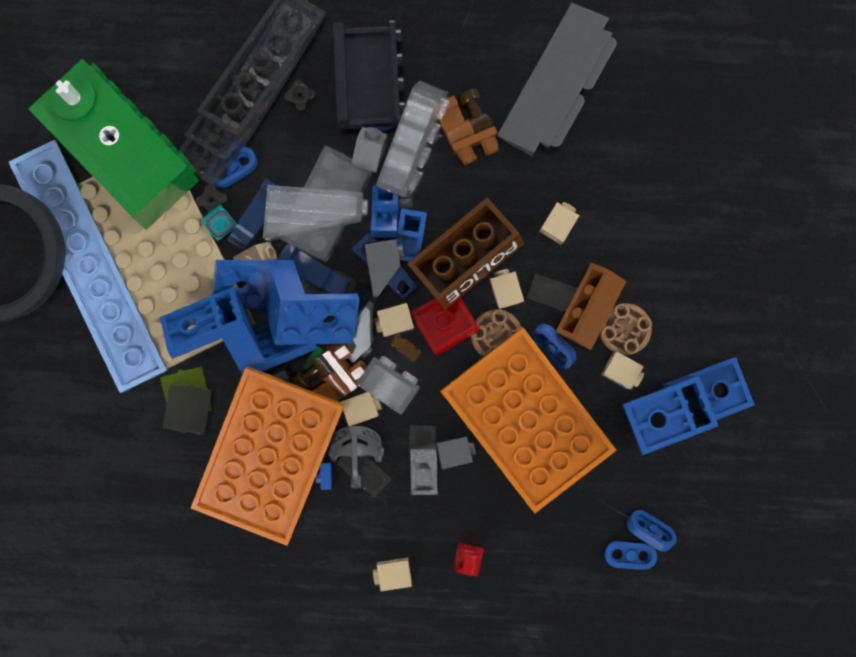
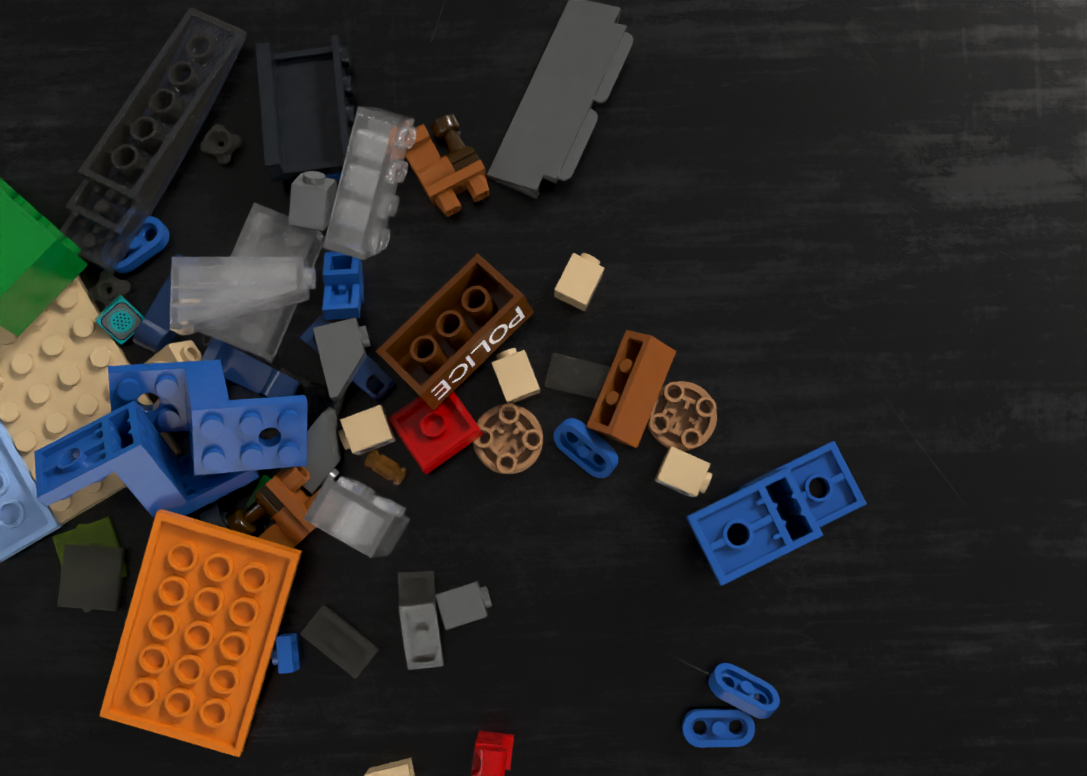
camera: 10 degrees left, 5 degrees down
(354, 448) = (320, 613): dark grey helmet -> none
(361, 408) = (327, 557): tan brick -> none
(411, 232) = (379, 309): blue brick -> none
(528, 420) = (559, 552): orange plate -> none

